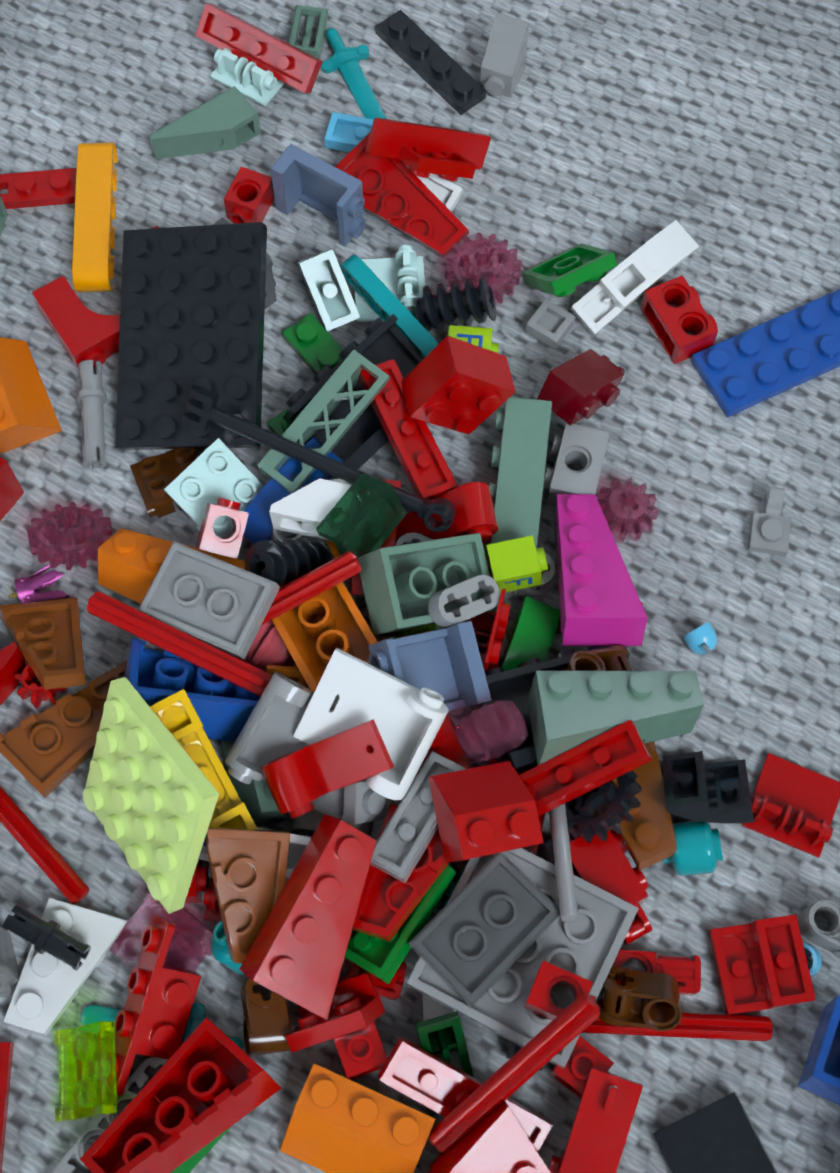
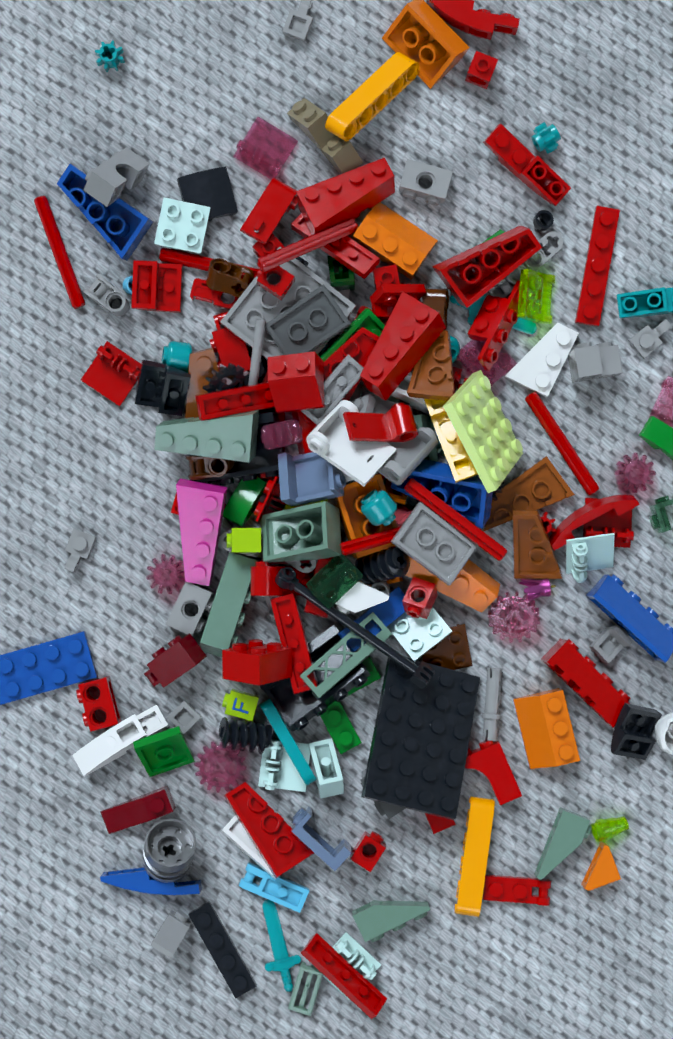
camera: 170 degrees left, 20 degrees up
(46, 937) = (550, 370): black pin -> none
(307, 634) = (378, 507): none -> teal head
(429, 148) = (238, 854): red bracket -> none
(461, 593) = (282, 519): light grey beam -> none
(519, 127) = (165, 838): none -> flat silver wheel
(555, 115) = (140, 881): none -> blue slope
(581, 200) = (138, 810): none -> dark red slope
(700, 635) = (140, 481): medium azure hinge -> none
(746, 1083) = (182, 225): none -> light aqua hinge

